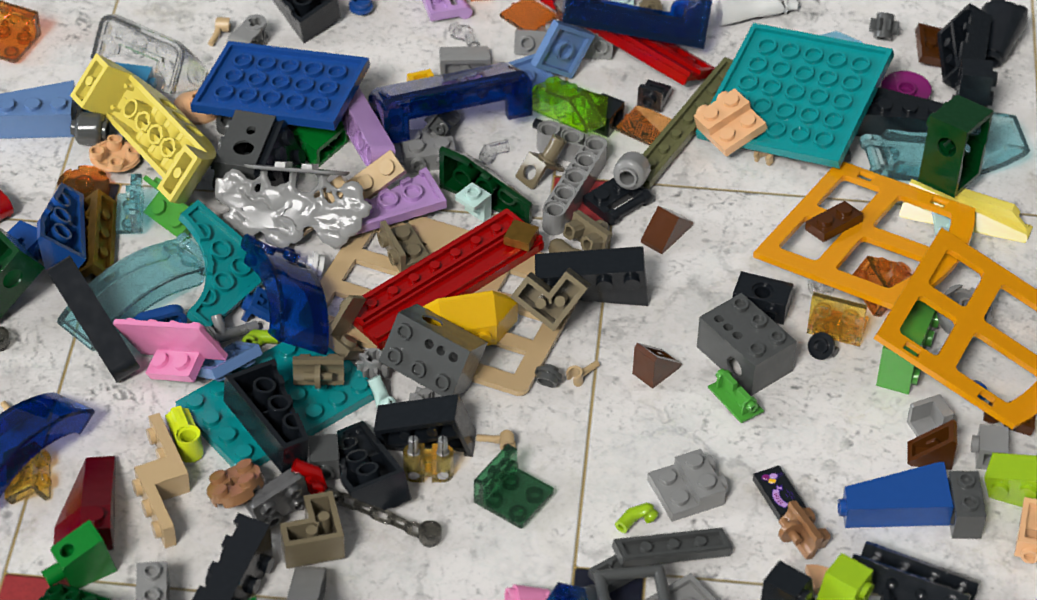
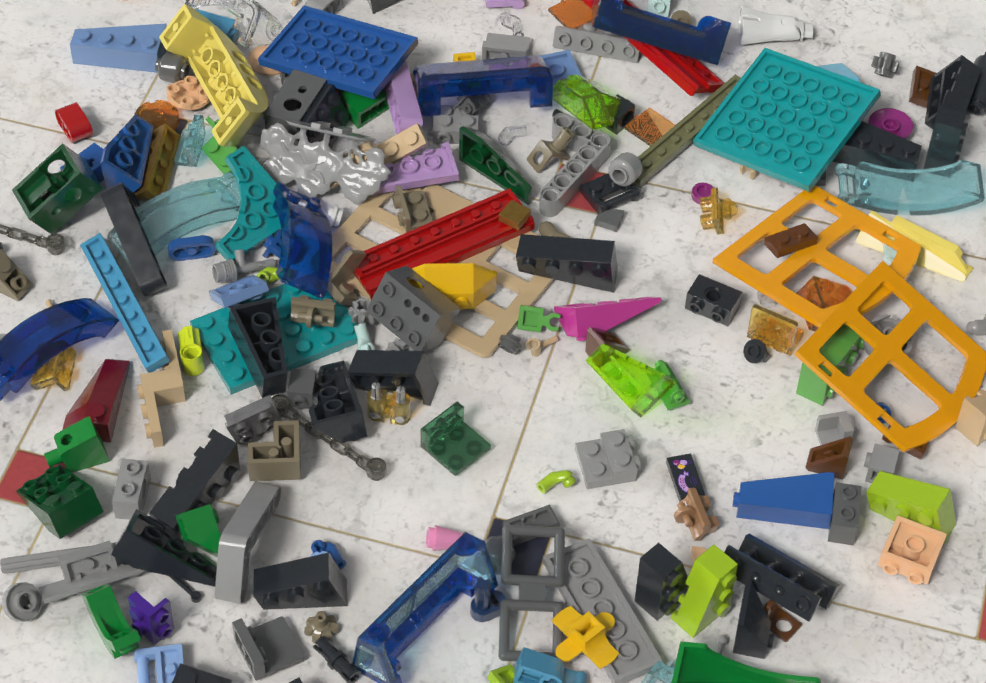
camera: 10 degrees right, 5 degrees up
(97, 392) = (125, 303): none -> dark azure plate
(176, 347) = (198, 275): bright pink bracket -> none
(235, 484) = (221, 401): medium nougat plate -> none
(313, 475) = (287, 403): red arm -> none
(476, 201) = (484, 178): light aqua bracket -> none
(505, 437) = (460, 394): tan hand -> none
(549, 303) = (522, 279): dark tan brick -> none
(562, 49) = (591, 49): medium blue plate -> none
(567, 345) = (533, 318): none -> bright green plate
(588, 232) = (578, 221): dark tan hips -> none
(620, 338) = (604, 316): none -> dark pink wedge
(625, 227) = (609, 219): none -> dark grey tile
(653, 95) = (663, 101): black bracket -> none
(665, 229) = (644, 225): reddish brown slope -> none
(671, 547) = (578, 513): dark grey tile -> none
(693, 393) = (630, 379): none -> clear neon green wedge
(720, 187) = (701, 190): none -> magenta tile
(729, 122) = (722, 136): light nougat plate -> none
(749, 200) = (719, 210): none -> clear yellow hips
(752, 338) = (691, 336): dark grey piece -> none
(944, 160) = (903, 196): dark green piece -> none

